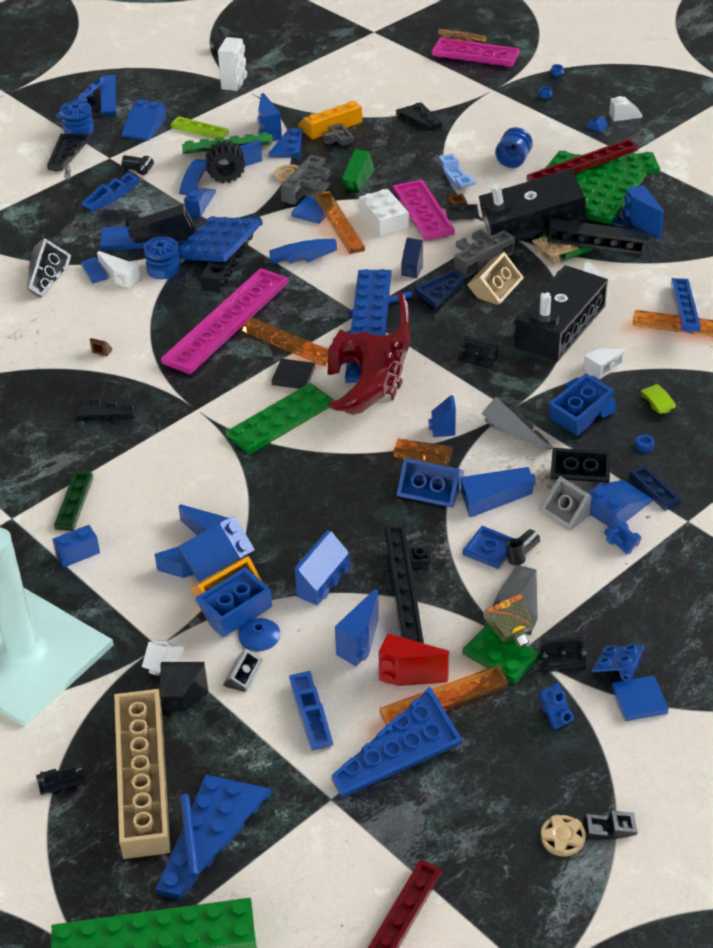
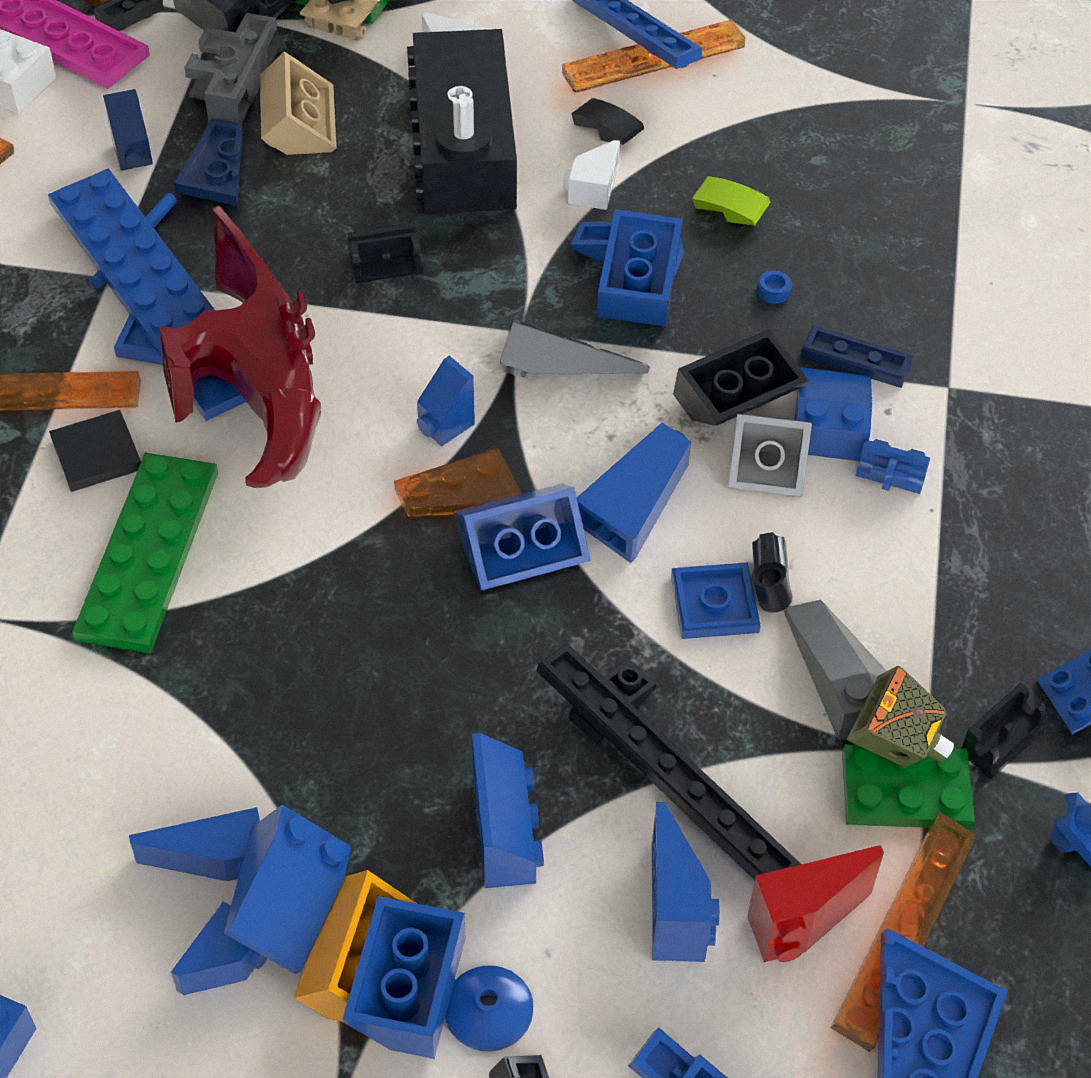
camera: 40 degrees left, 10 degrees up
(634, 342) = (608, 119): none -> black slope

